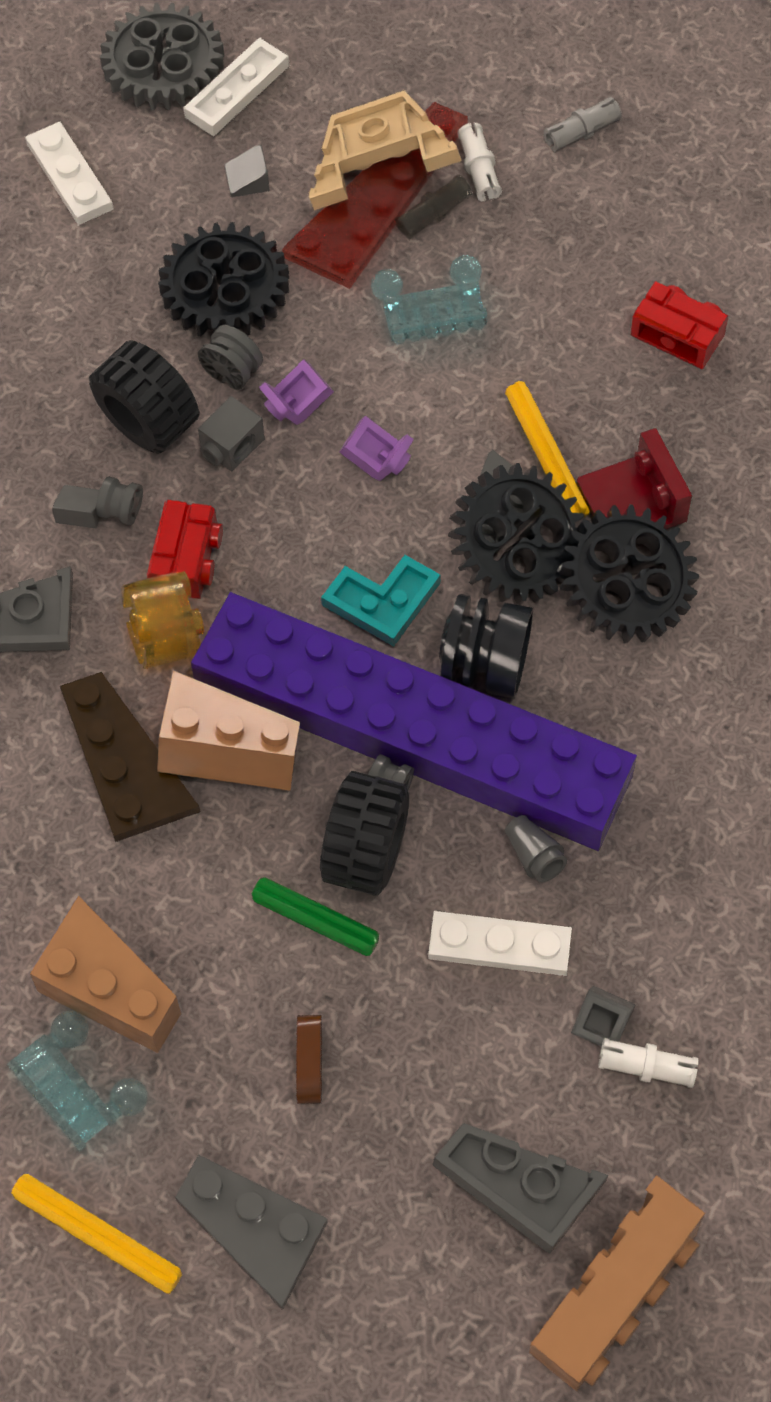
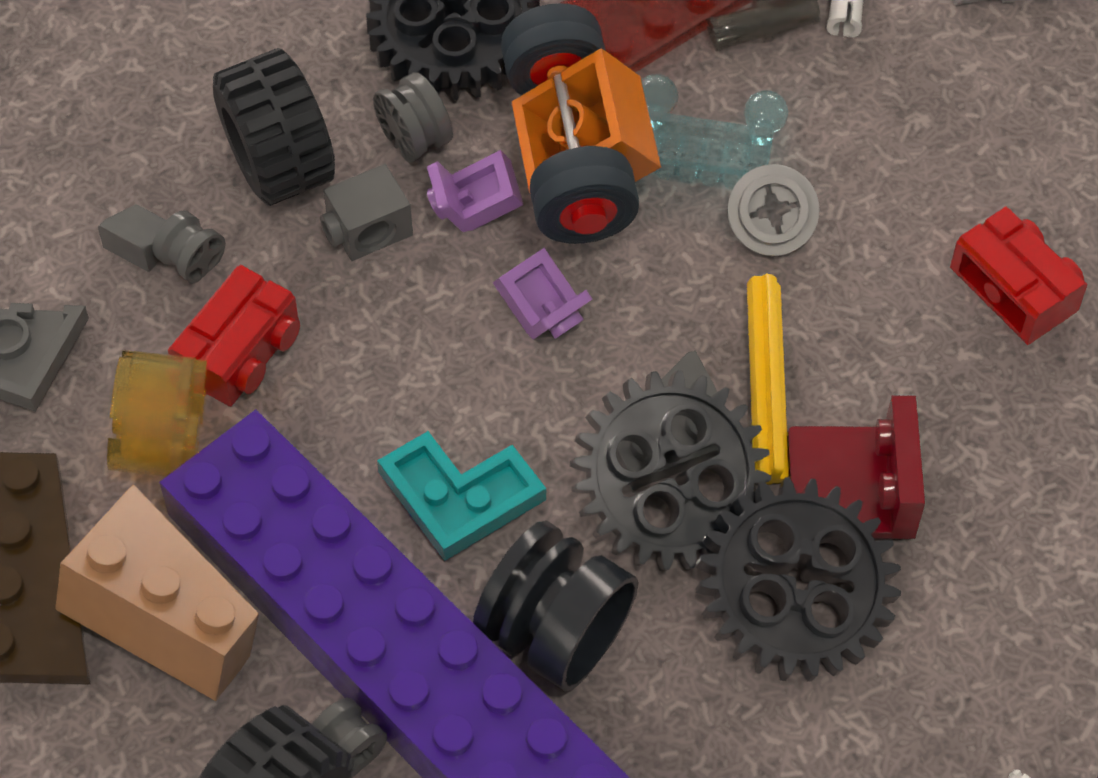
camera: 20 degrees right, 5 degrees down
(350, 323) = (577, 124): none -> brick
(520, 342) = (787, 187): none -> light grey gear

